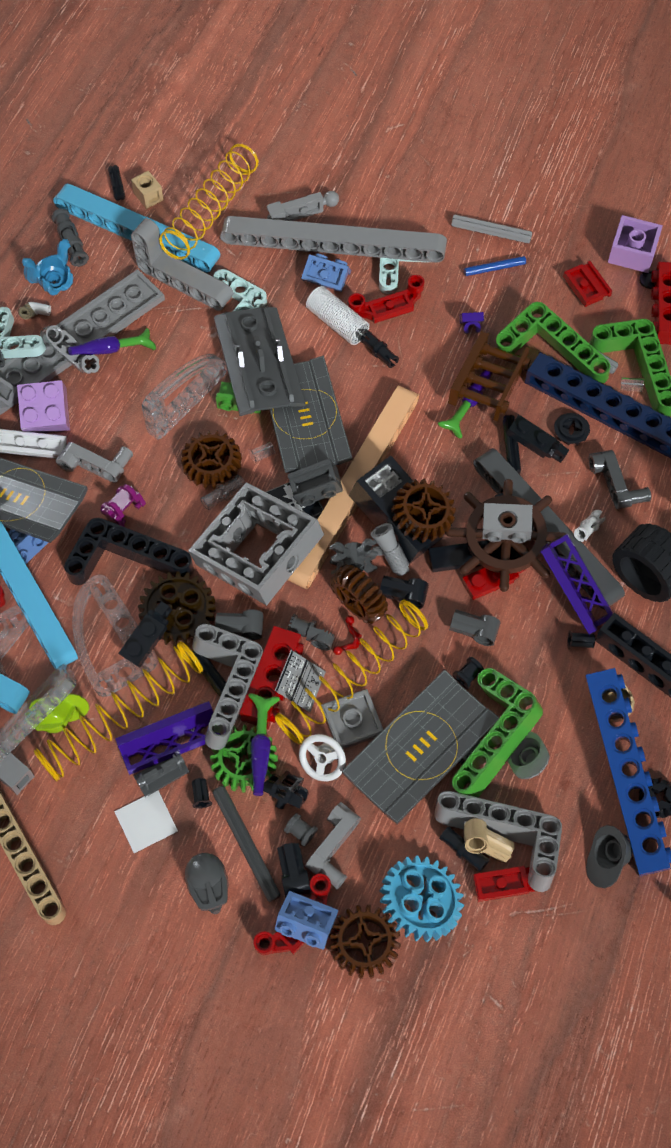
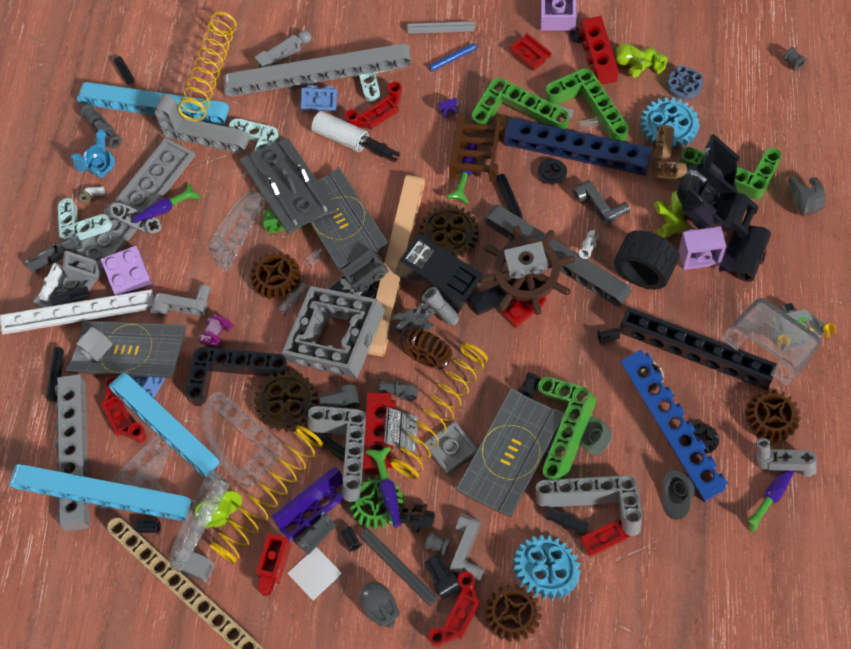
camera: 10 degrees left, 0 degrees up
(99, 794) = (272, 562): none -> red hinge
(146, 635) = (269, 429): black hinge -> none
(147, 189) = (151, 69): tan brick -> none
(305, 920) = (463, 610): medium blue bracket -> none
(330, 749) = (442, 475): white piece -> none
(337, 650) = (423, 397): red piece -> none
(398, 589) = (466, 334): black piece -> none
(416, 516) = (461, 263): reddish brown gear -> none
(433, 449) = (449, 218): none -> dark brown gear
(482, 628) = (530, 348): dark grey piece -> none
(482, 840) = (579, 509): tan piece -> none
(536, 439) = (527, 188): black hinge -> none
(570, 589) = (597, 306): dark purple fence -> none

